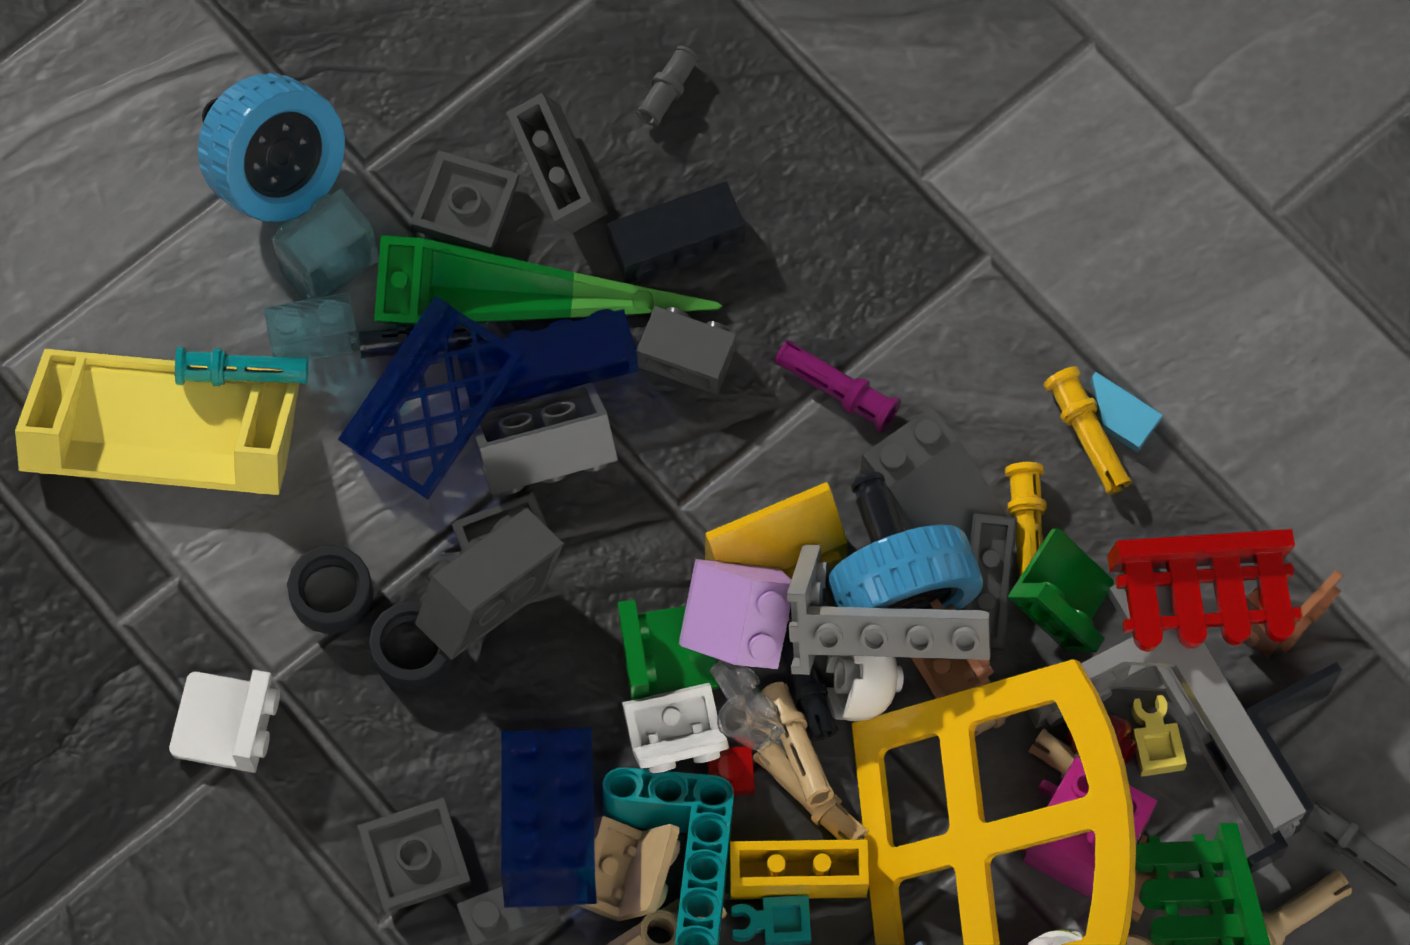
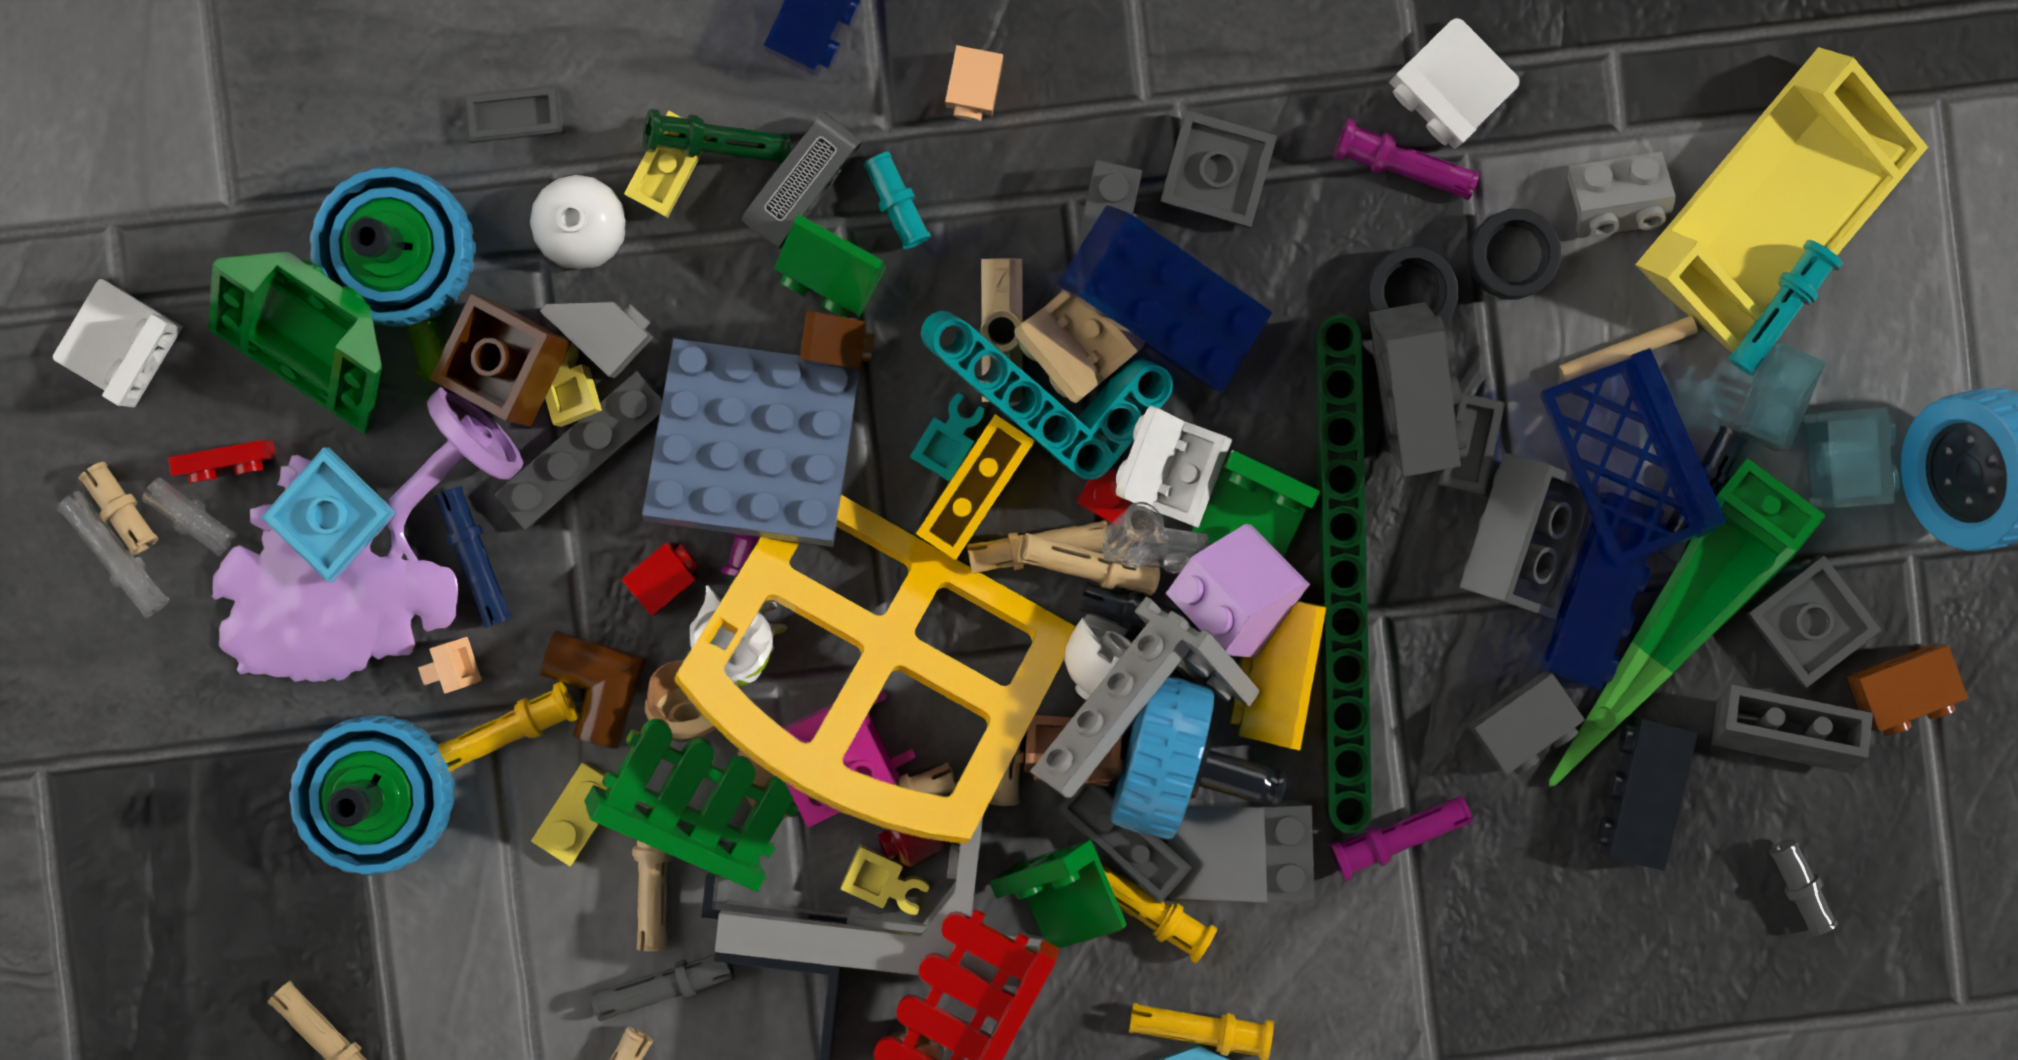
camera: 120 degrees right, 20 degrees up
(229, 541) = (1621, 194): none -> light grey bracket
(315, 736) = (1385, 154): none -> magenta pin
(347, 462) = (1625, 349): none -> tan piece
(468, 106) = (1909, 688): none -> dark orange brick
(658, 571) = (1354, 595): none -> dark green beam

